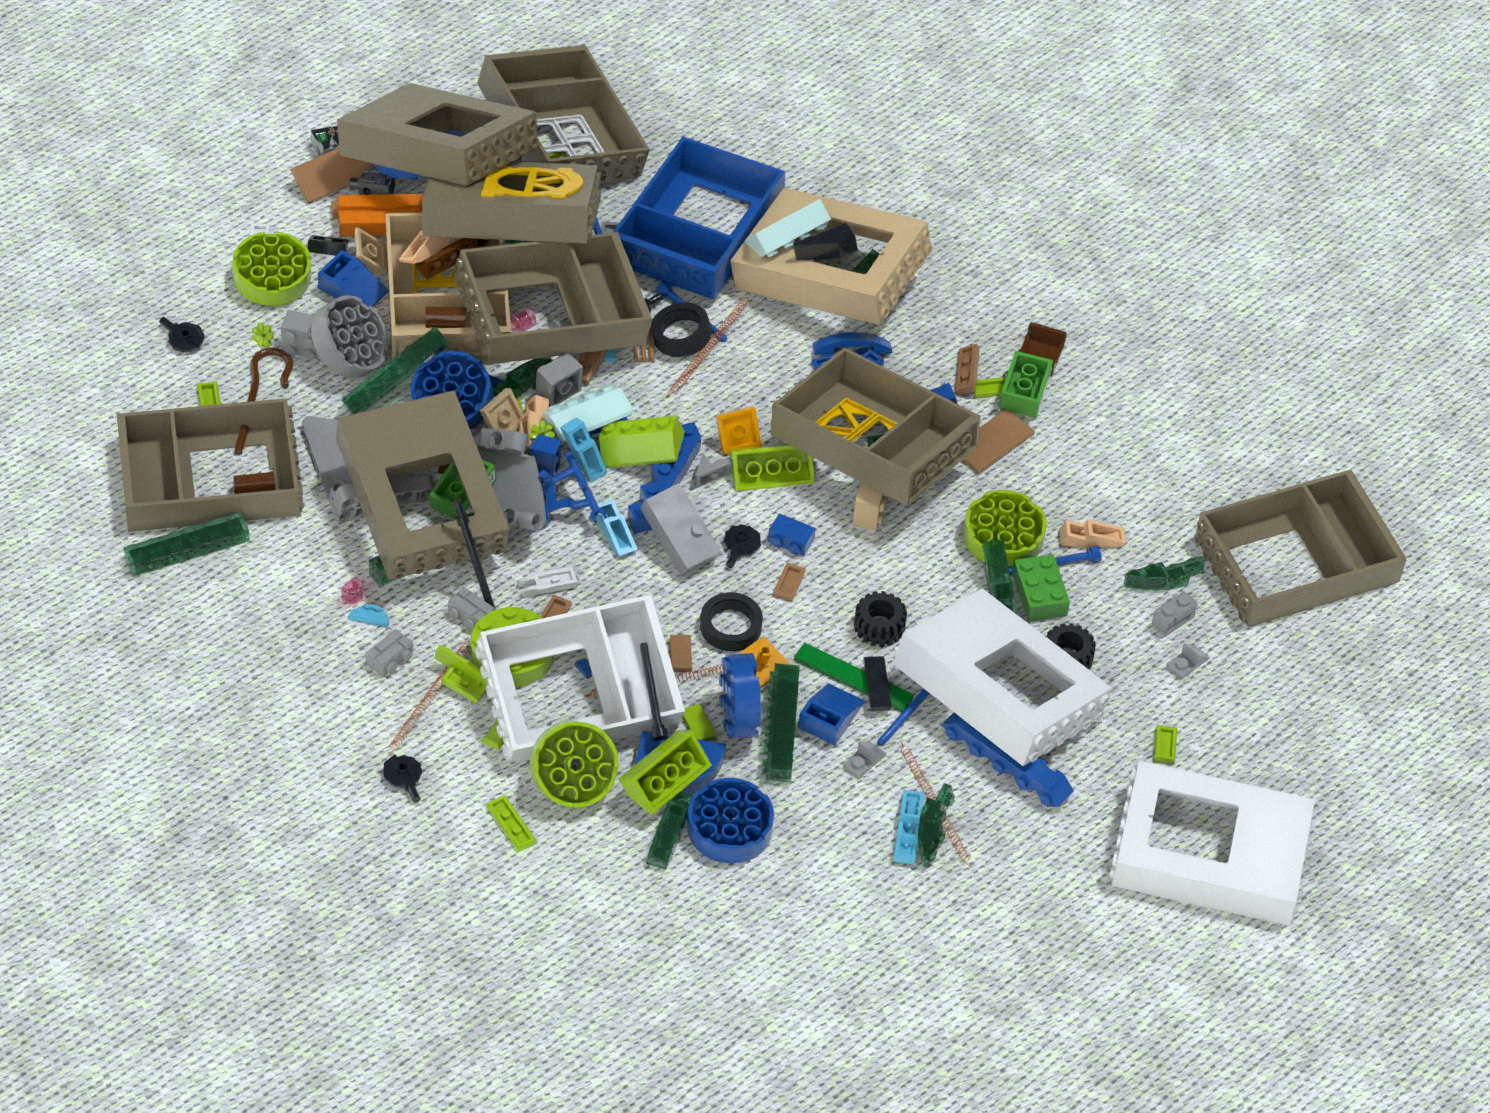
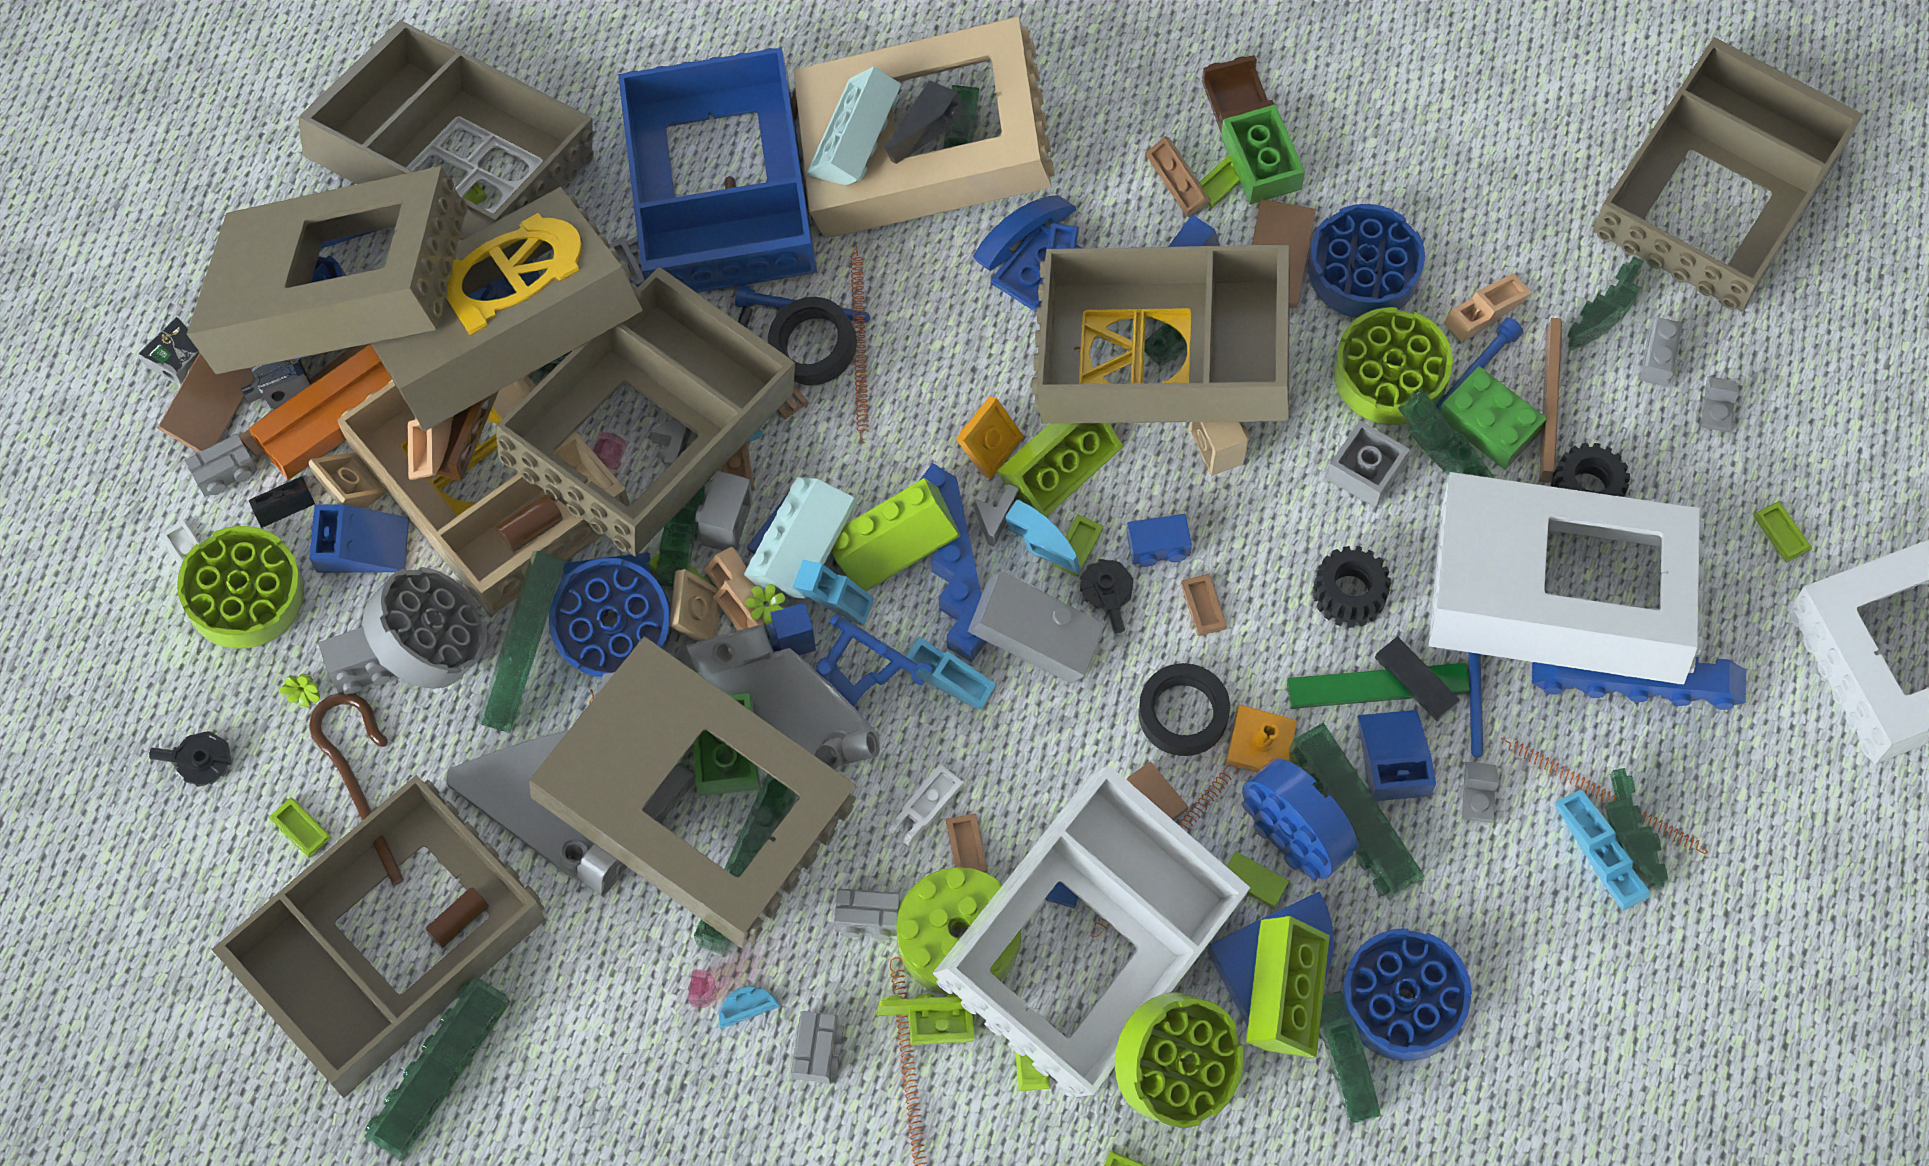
camera: 30 degrees left, 15 degrees up
(310, 208) = (221, 465): none -> light grey brick
(462, 521) = (805, 824): black bar -> none
(658, 731) = (1243, 939): black piece -> none
(724, 493) = (1041, 536): none -> medium azure slope
(744, 513) = (1082, 538): none -> lime tile
(945, 566) = (1367, 463): none -> light grey brick
(1038, 467) = (1372, 235): none -> blue brick
(1086, 598) = (1550, 400): none -> medium nougat tile

